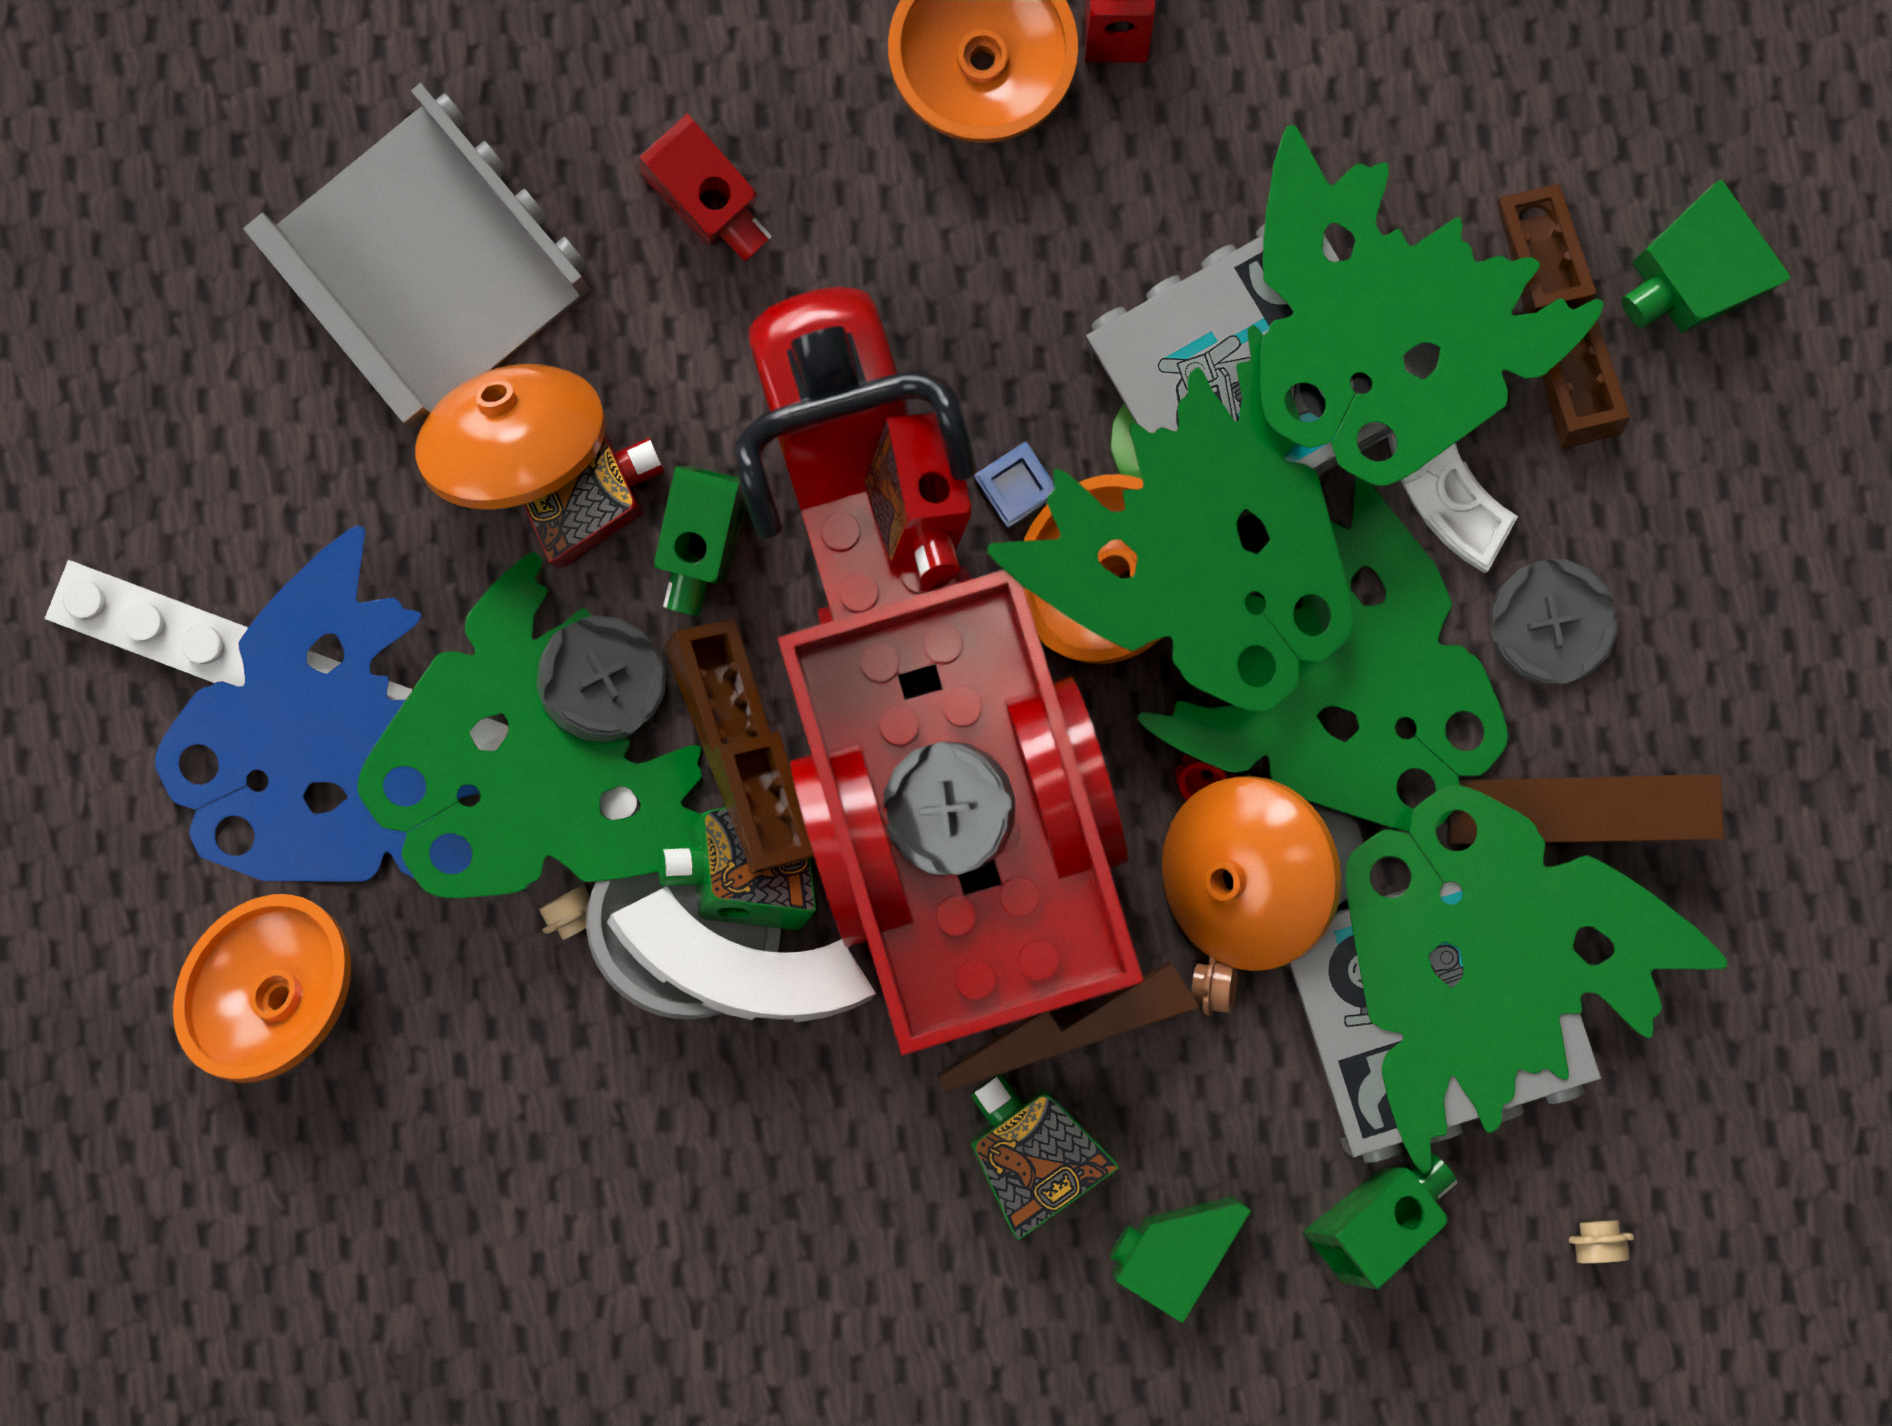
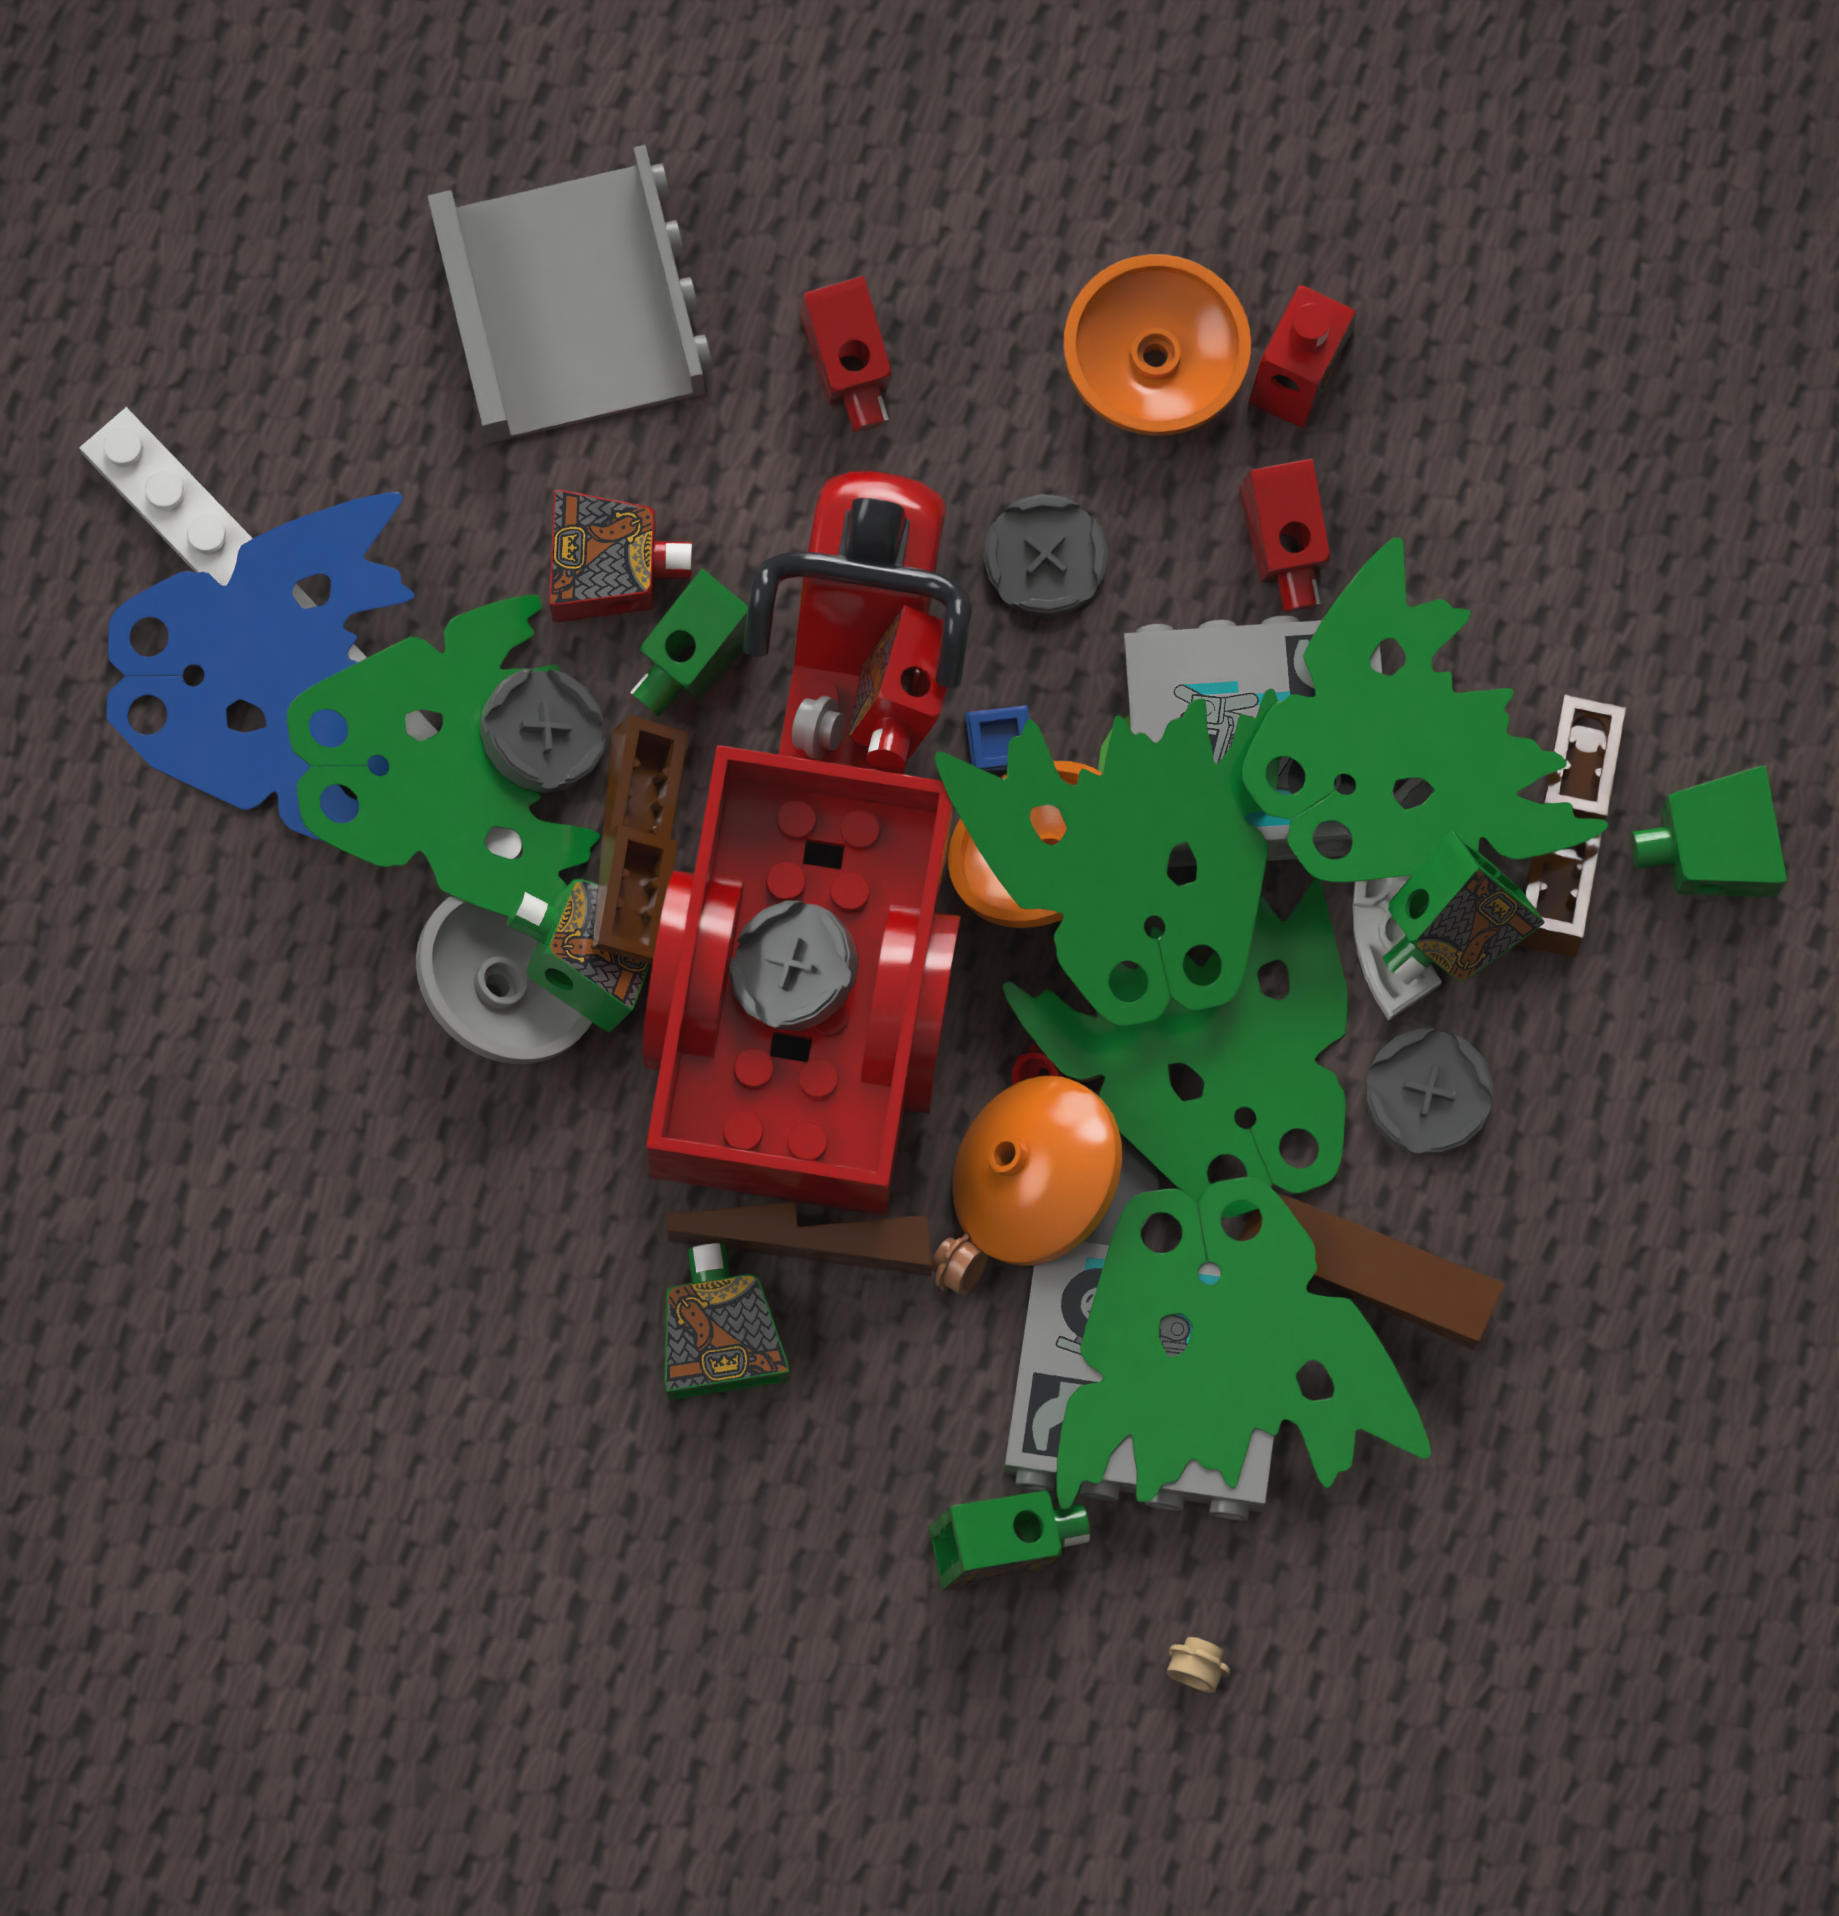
camera: 25 degrees right, 10 degrees down
(241, 972) = (109, 850): orange dish -> none
(510, 436) = (570, 480): orange dish -> none
(567, 913) = (406, 919): tan plate -> none
(737, 977) = (533, 1035): white tile -> none
(855, 563) = (818, 727): none -> light grey plate
(973, 293) = (1045, 556): none -> dark grey tile
(1177, 1253) = (804, 1480): green slope -> none
(1179, 140) = (1287, 502): none -> red torso
(1514, 453) = (1457, 914): none -> torso

